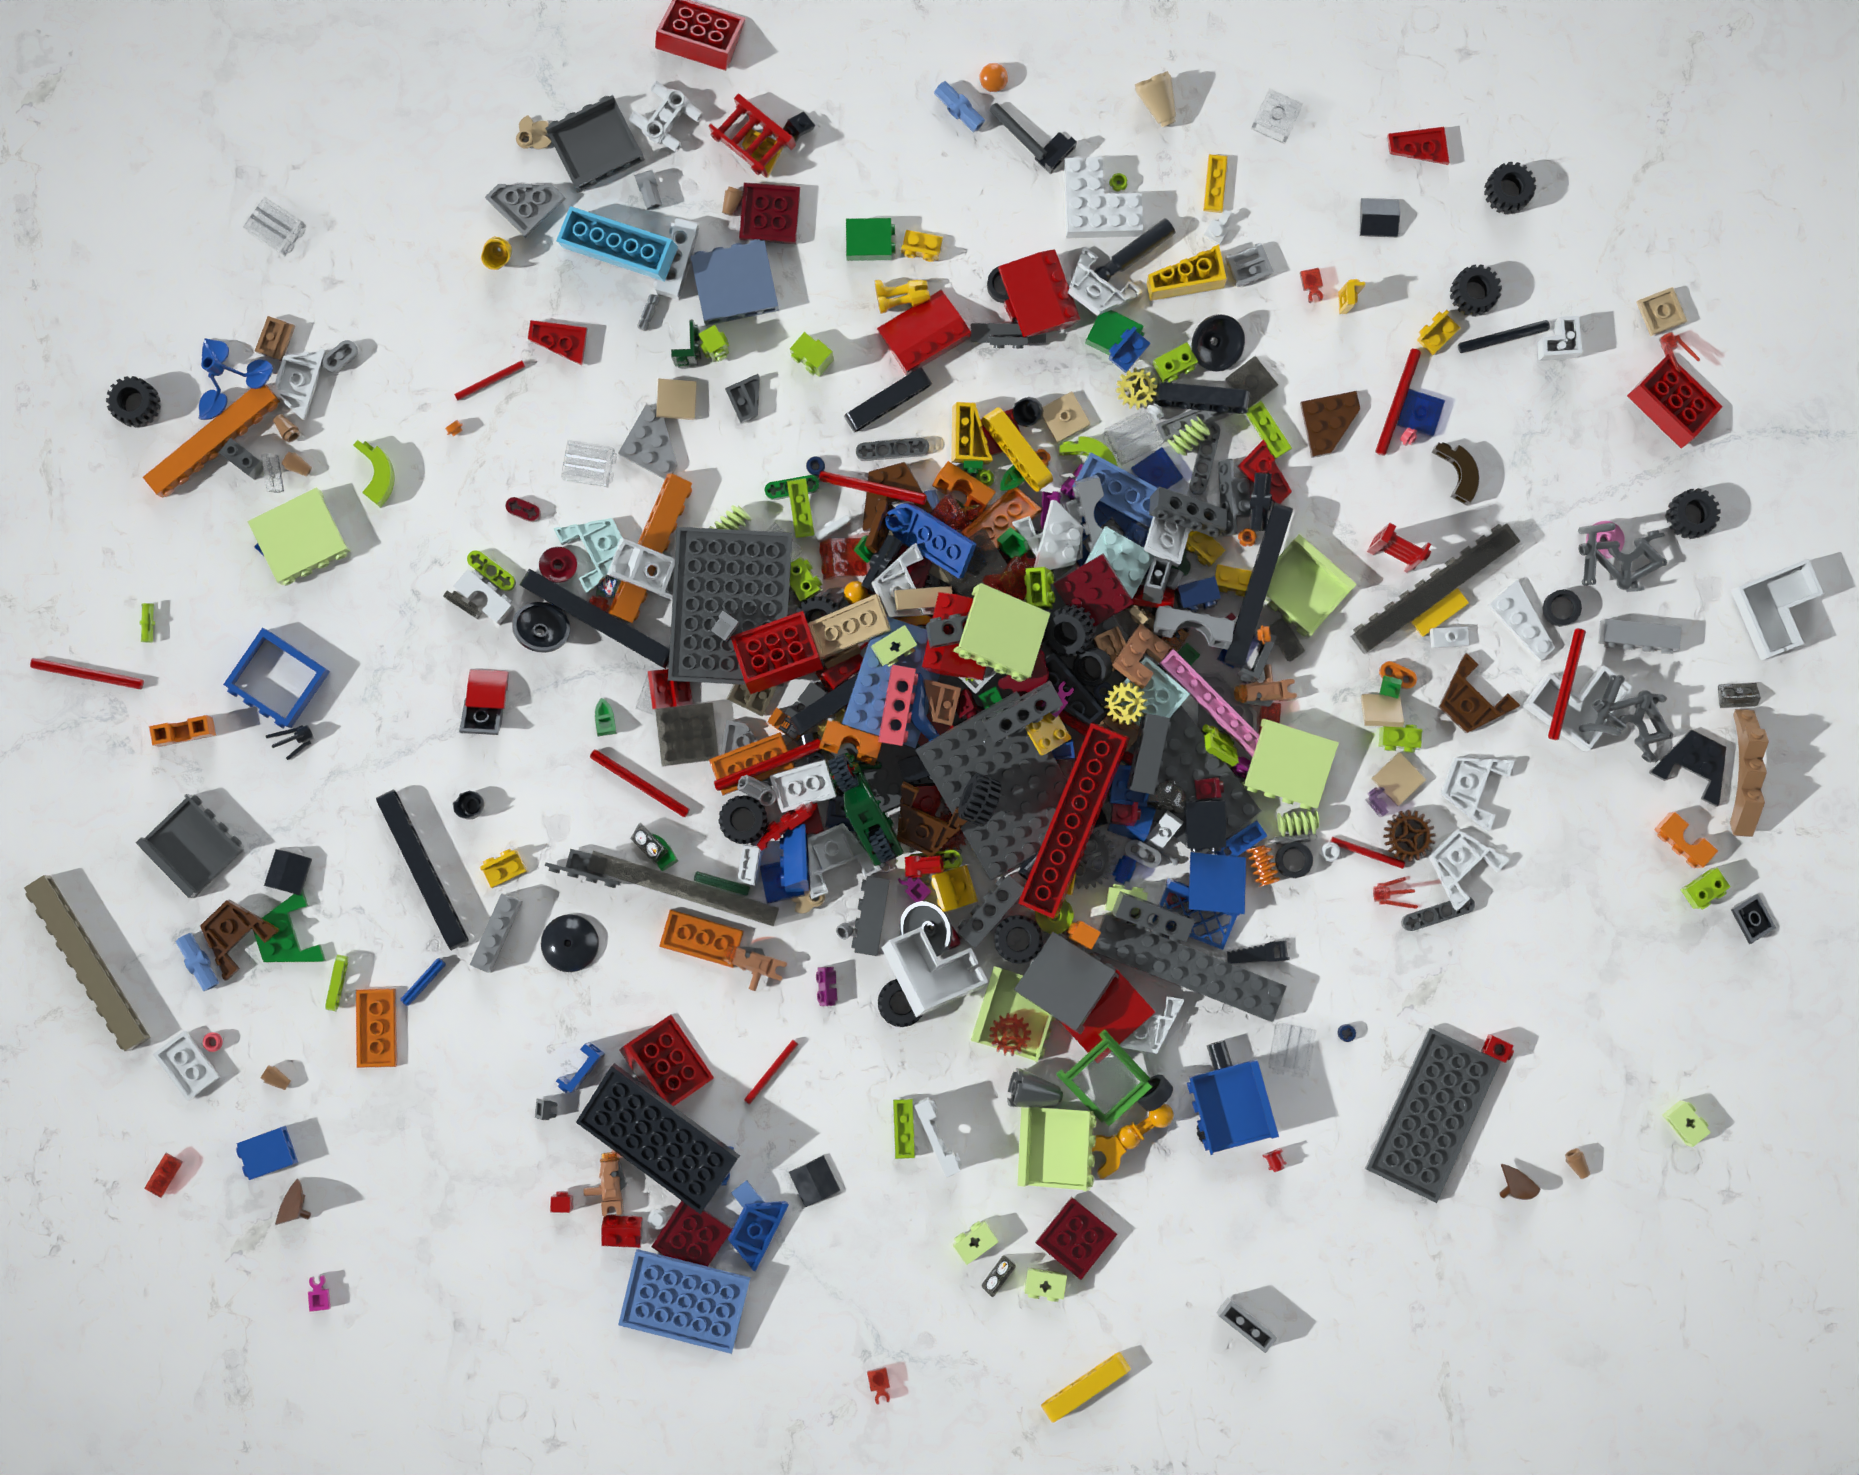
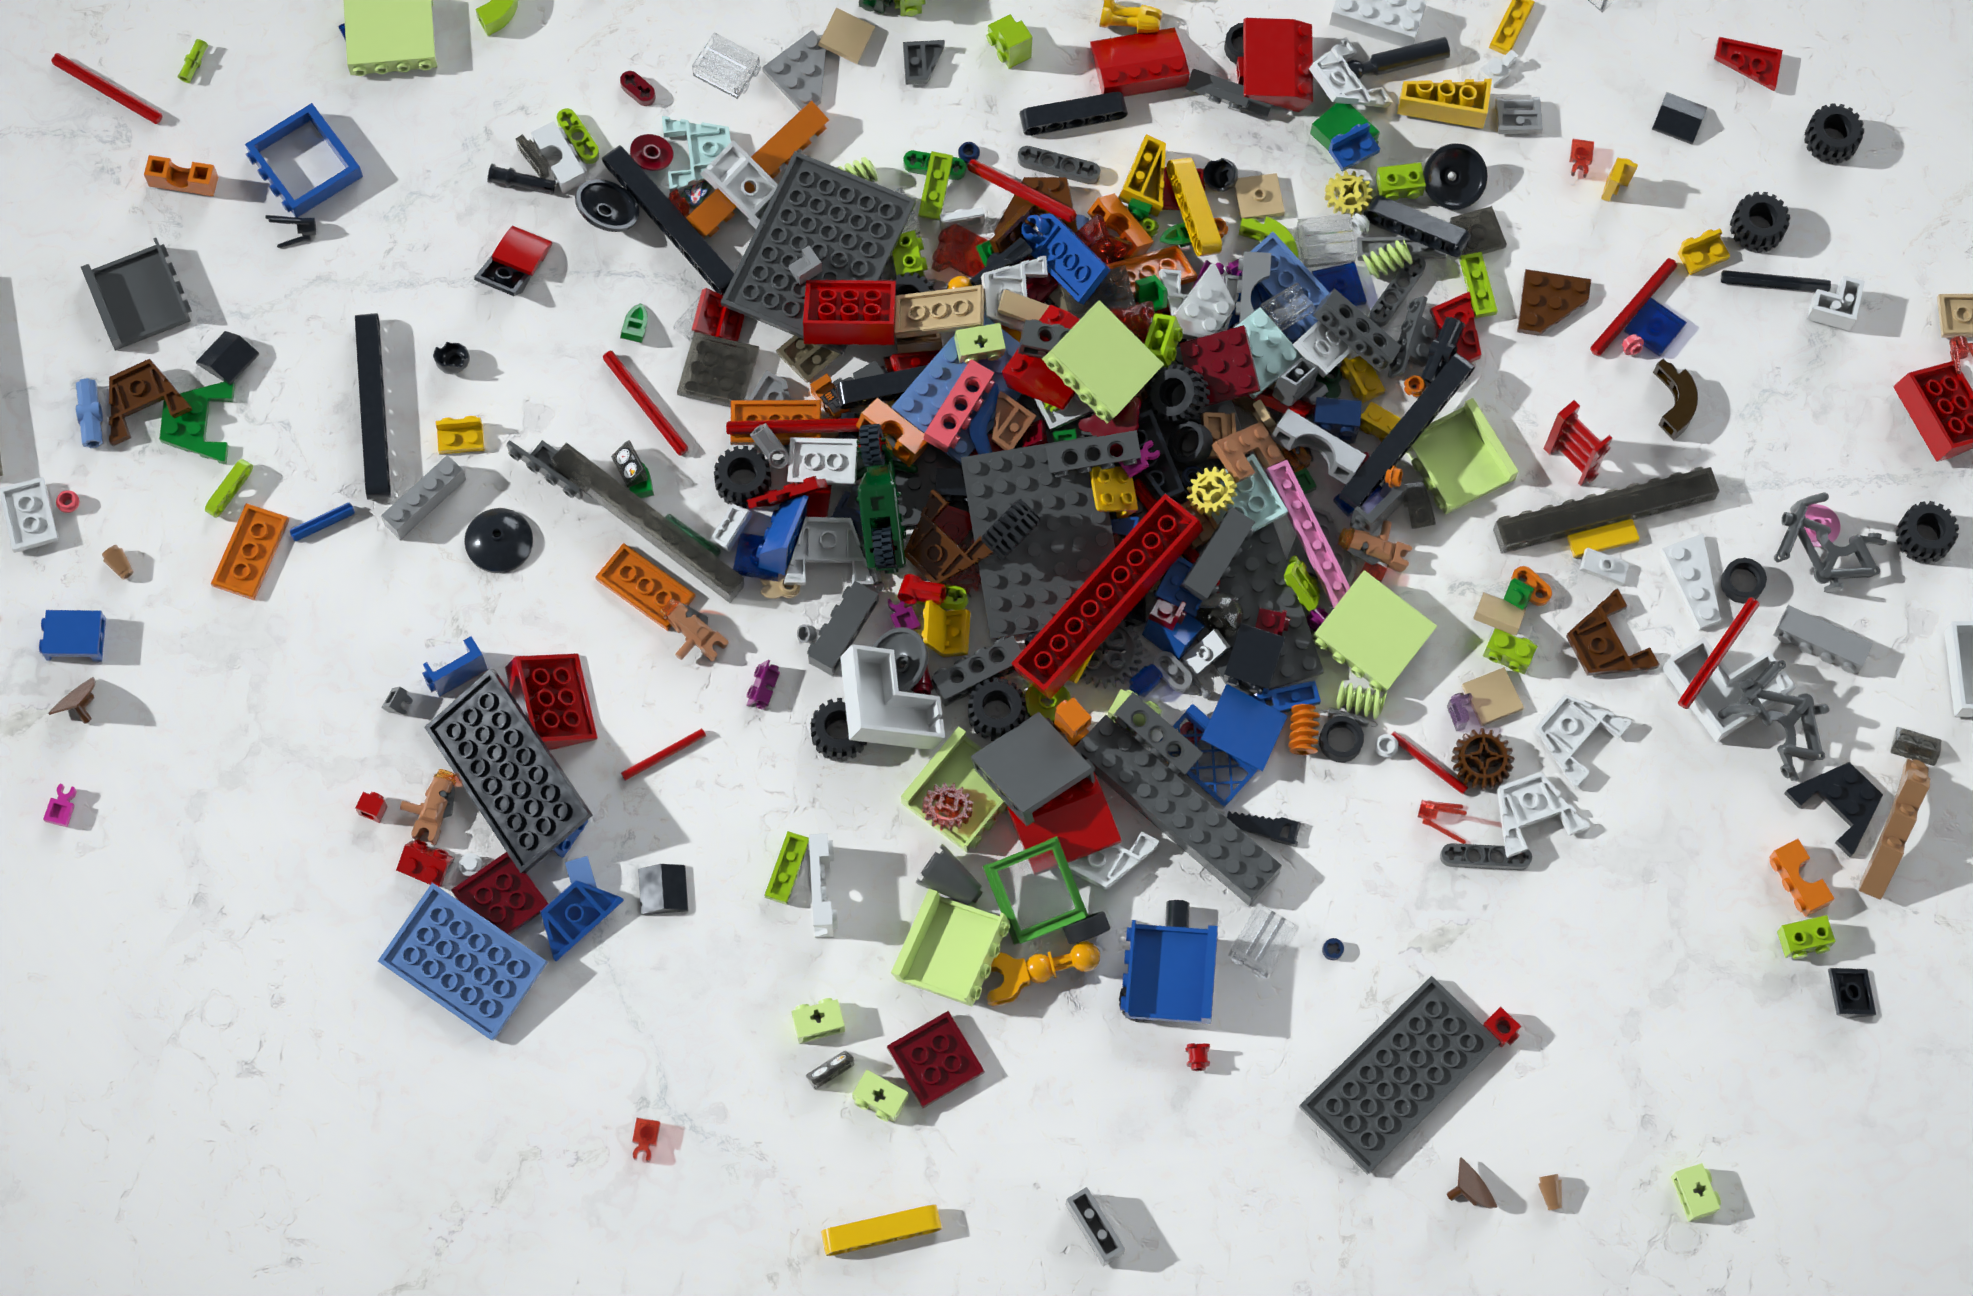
camera: 20 degrees right, 15 degrees down
(452, 629) = (511, 177): none -> black pin
(1126, 515) = (1288, 307): none -> clear bracket

